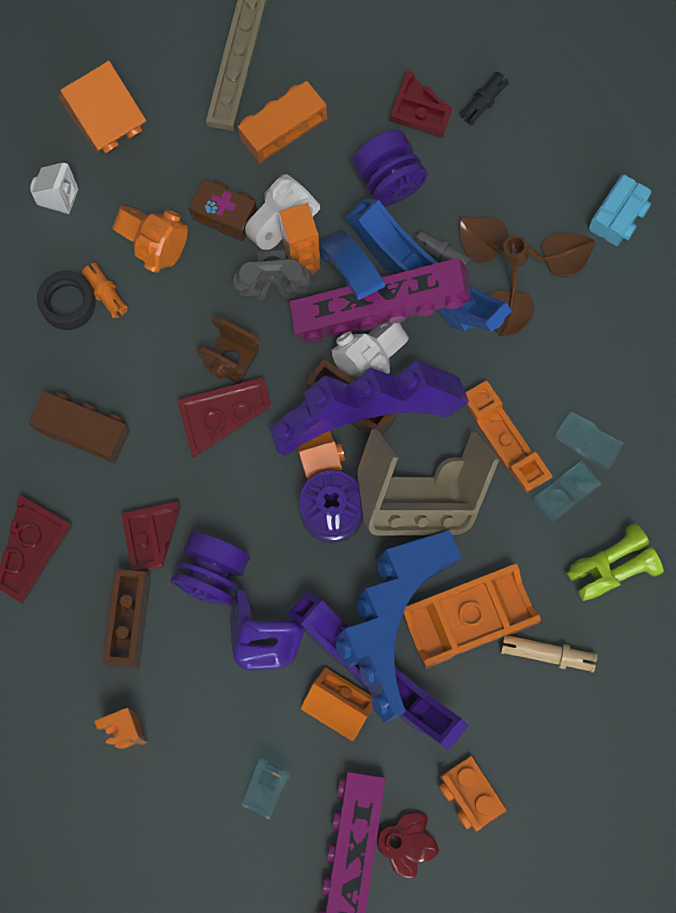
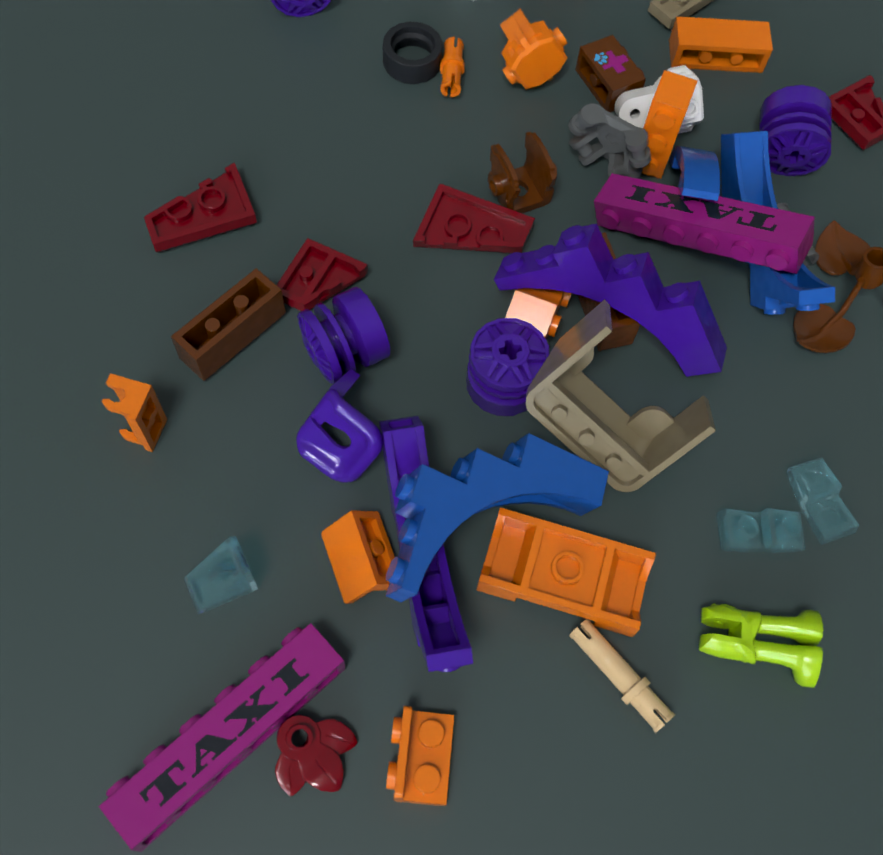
camera: 30 degrees right, 10 degrees down
(79, 426) = (336, 149): reddish brown brick -> none
(364, 351) = (668, 263): white piece -> none
(505, 439) = (732, 441): orange slope -> none

